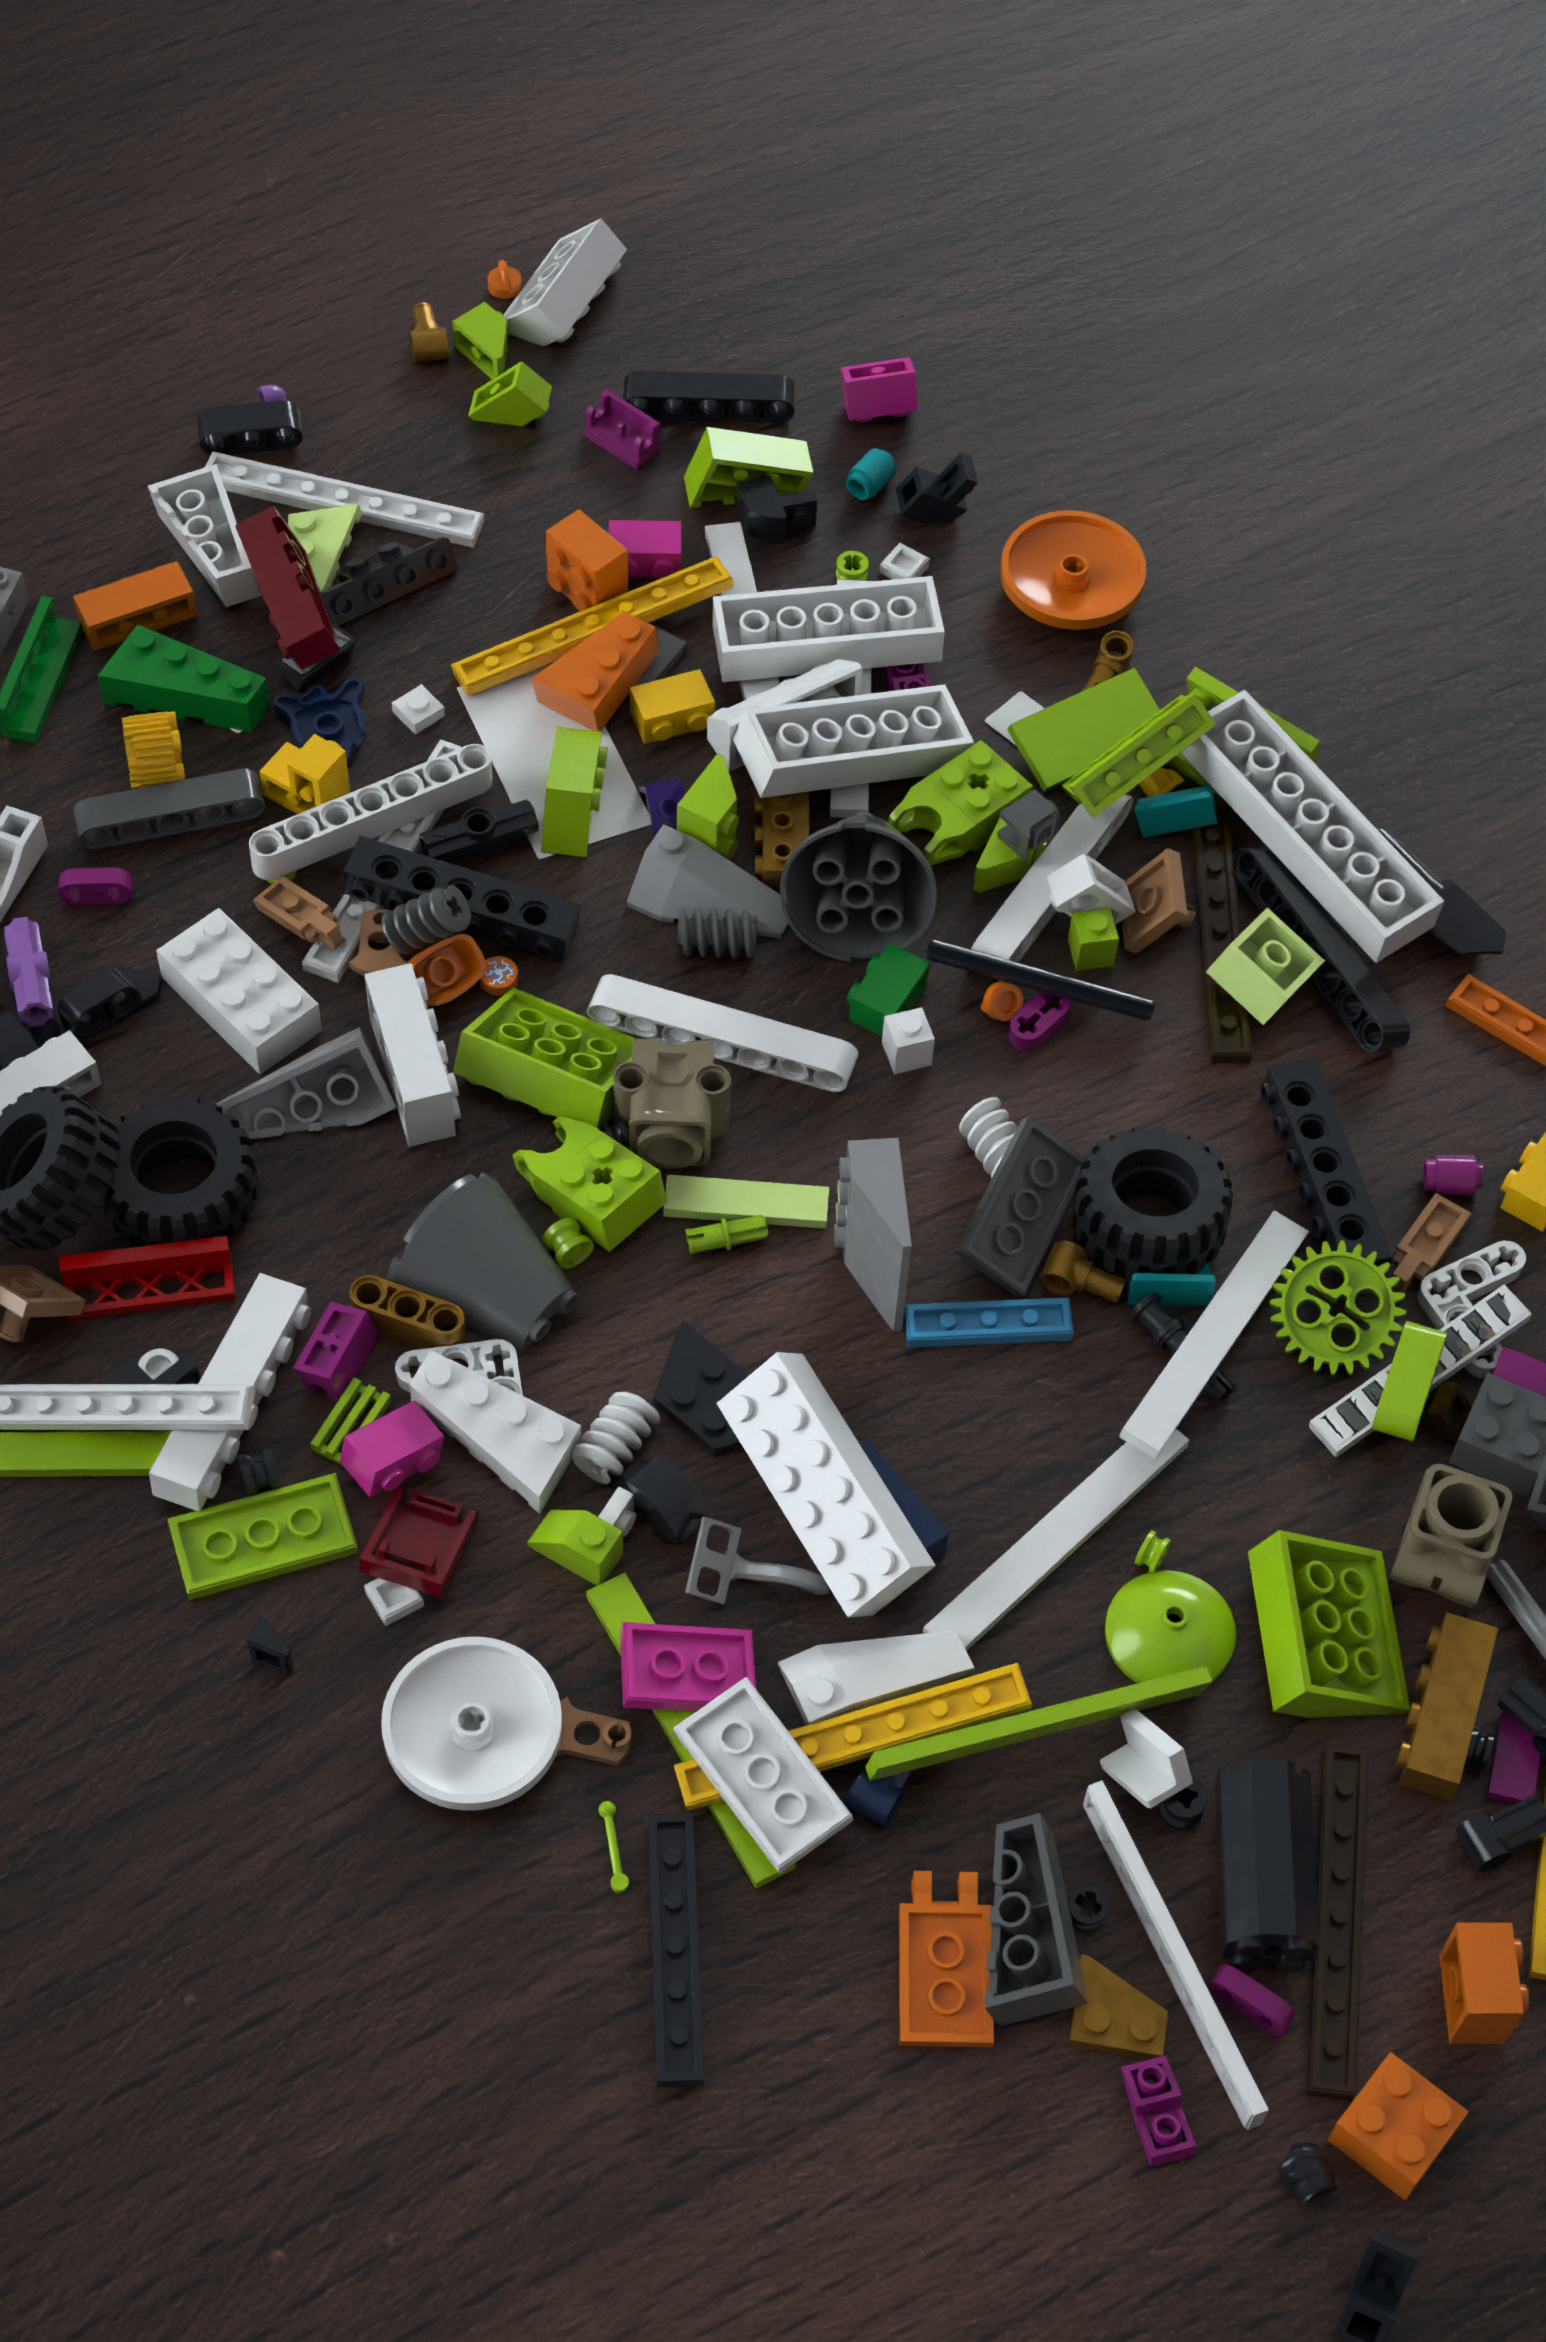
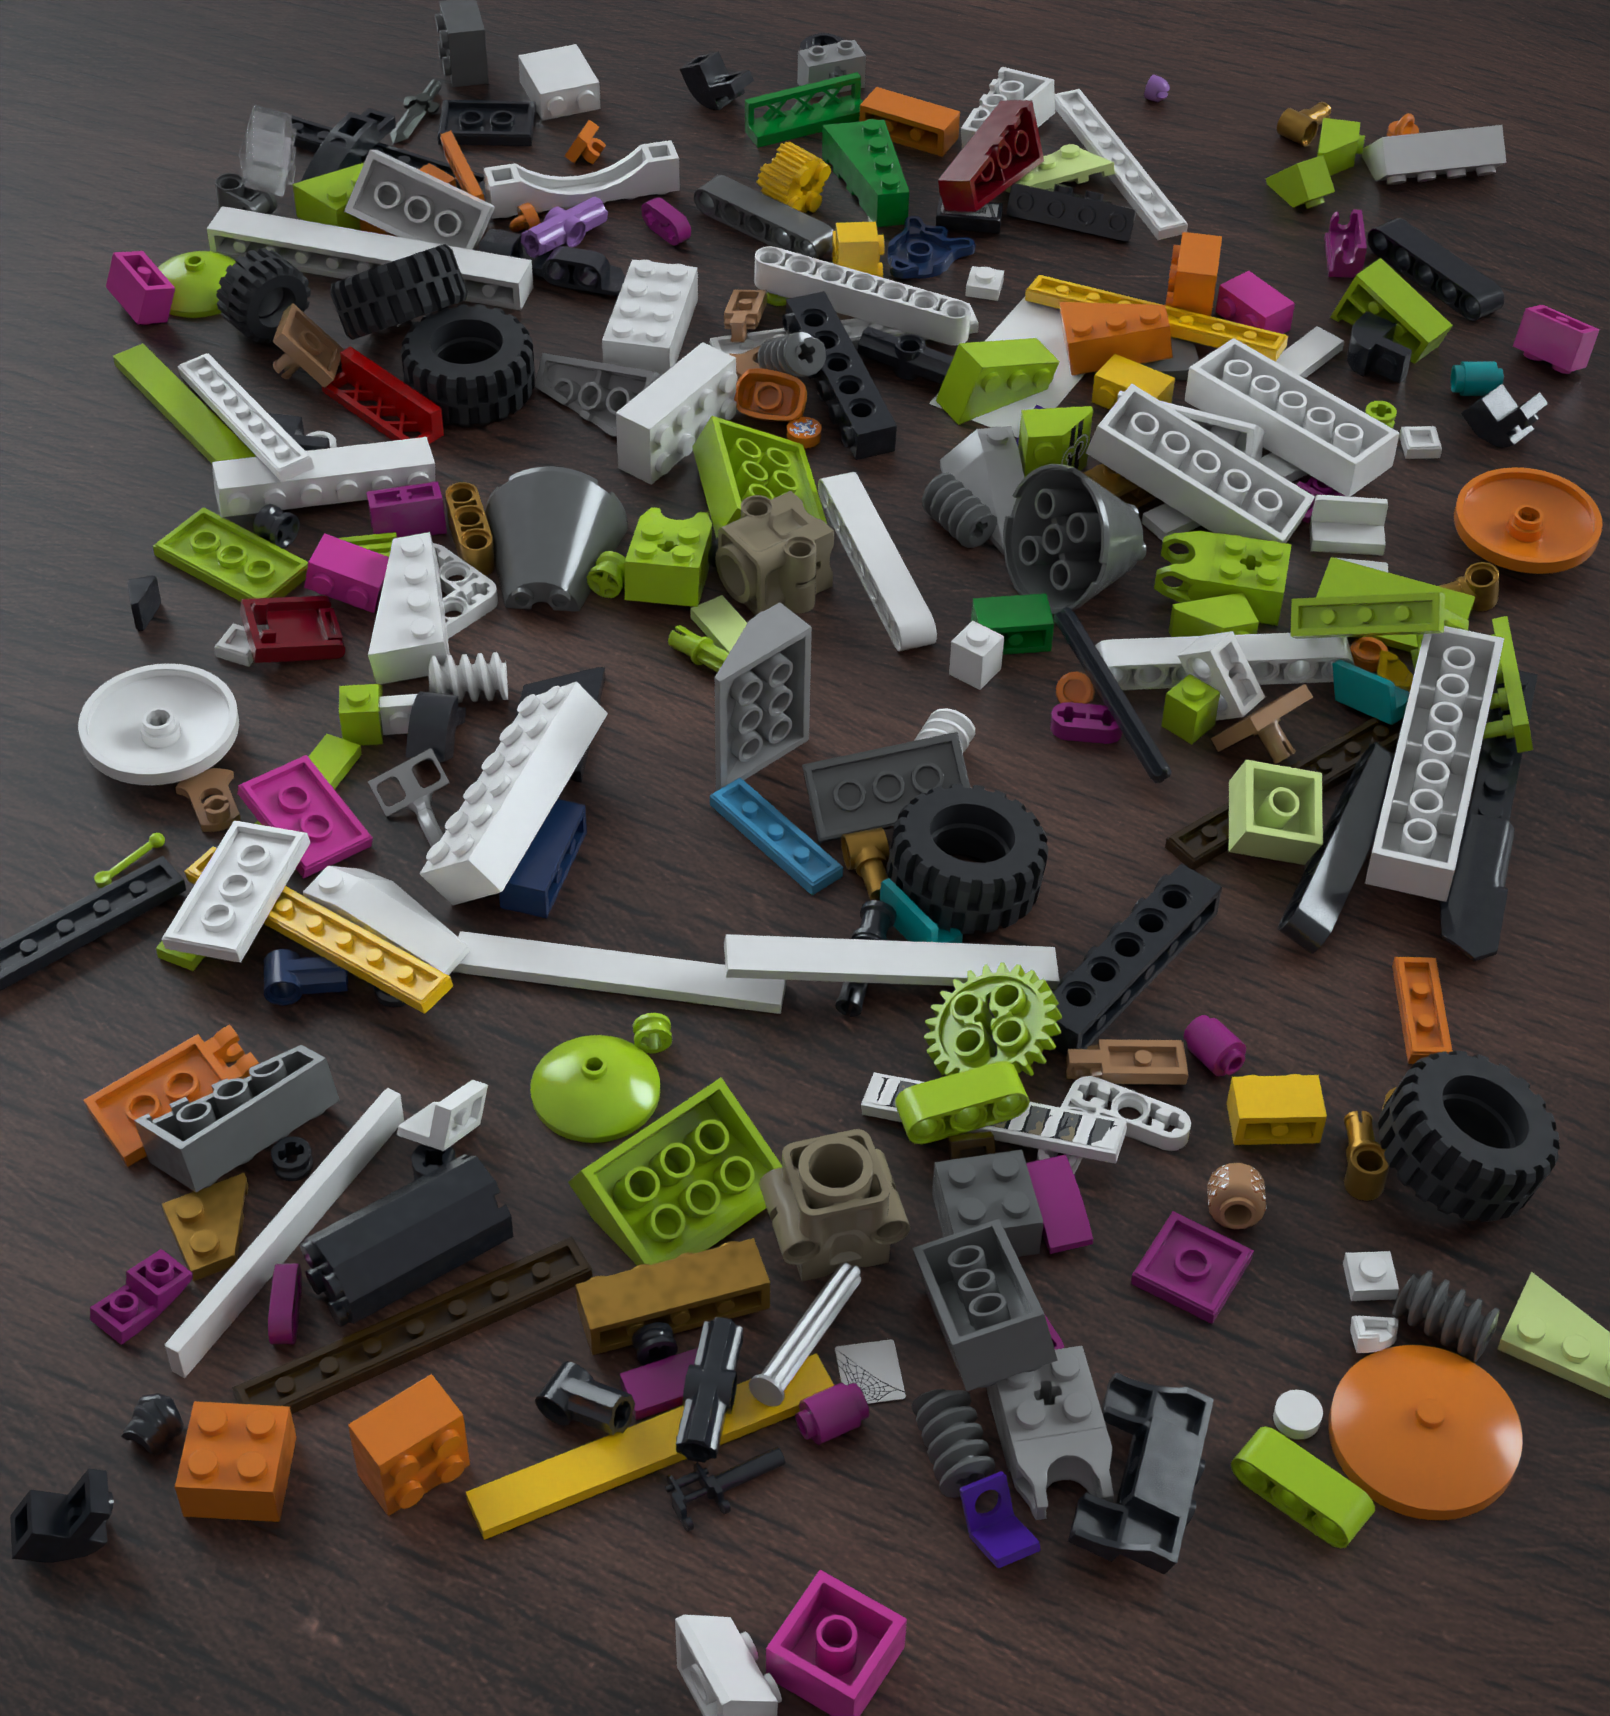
camera: 55 degrees right, 10 degrees down
(250, 428) = (1119, 92): black beam -> none
(974, 683) = (1348, 525): none -> white panel
(1029, 823) = (1239, 602): dark grey window -> none
(1037, 1723) = (420, 1028): lime tile -> none

